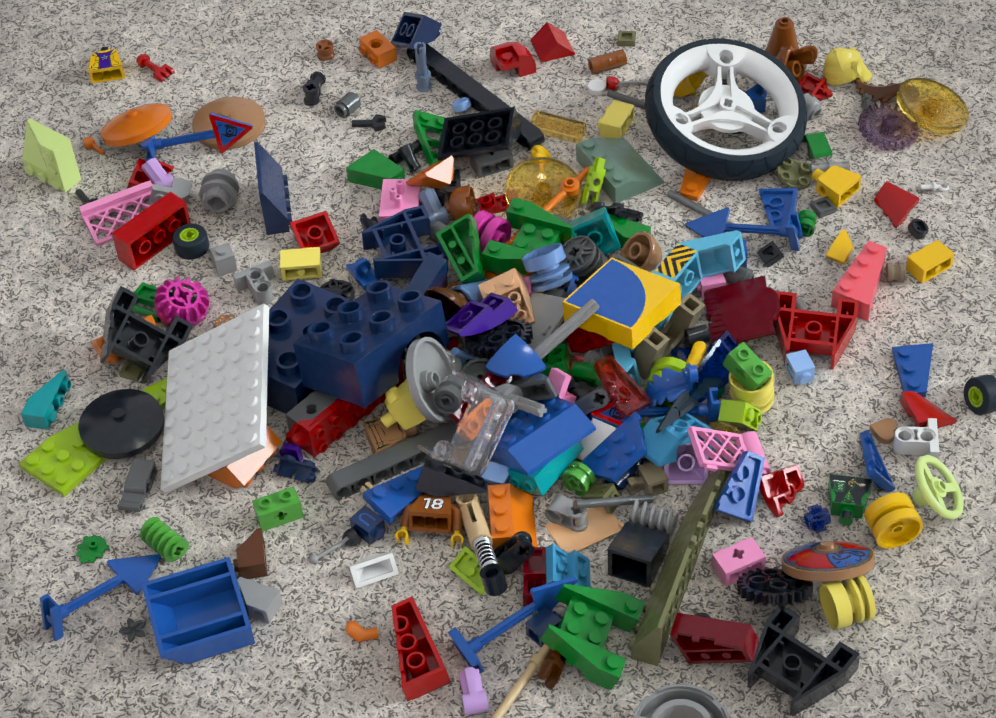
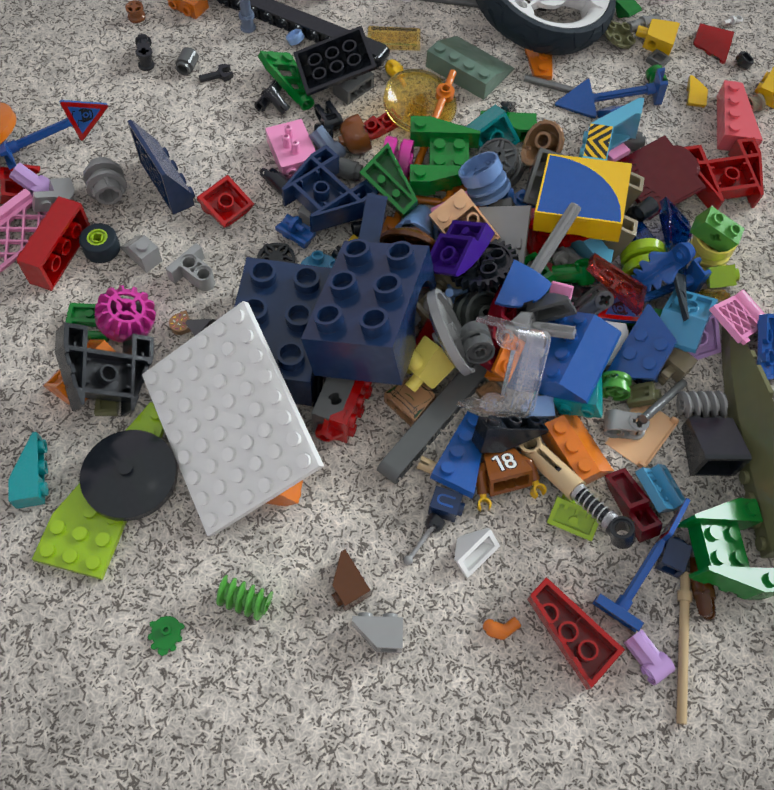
camera: 30 degrees left, 15 degrees up
(128, 570) = (226, 647): blue piece -> none
(133, 629) = (261, 717): dark grey plant -> none
(138, 484) = (181, 541): dark grey piece -> none
(198, 612) = (328, 676): blue slope -> none
(234, 108) = (74, 89): medium nougat dish -> none
(278, 508) = (346, 517): bright green brick -> none
(292, 450) = (325, 447): dark purple tile -> none
(304, 261) = (228, 236): light yellow brick -> none
(304, 470) = (347, 463): dark blue hinge -> none
(372, 169) = (249, 121): green slope -> none
(436, 175) = (316, 110): orange slope -> none
(514, 553) = (609, 485): black piece -> none
(595, 172) = (463, 82): lime hinge -> none
(610, 209) = (484, 105): black dish -> none
(616, 119) = (443, 19): light yellow brick -> none
(696, 353) = (654, 227): yellow bar -> none
(770, 254) = (647, 115): black tile -> none
(778, 203) = (625, 67): blue wing -> none
(800, 367) = (736, 211): light blue brick -> none

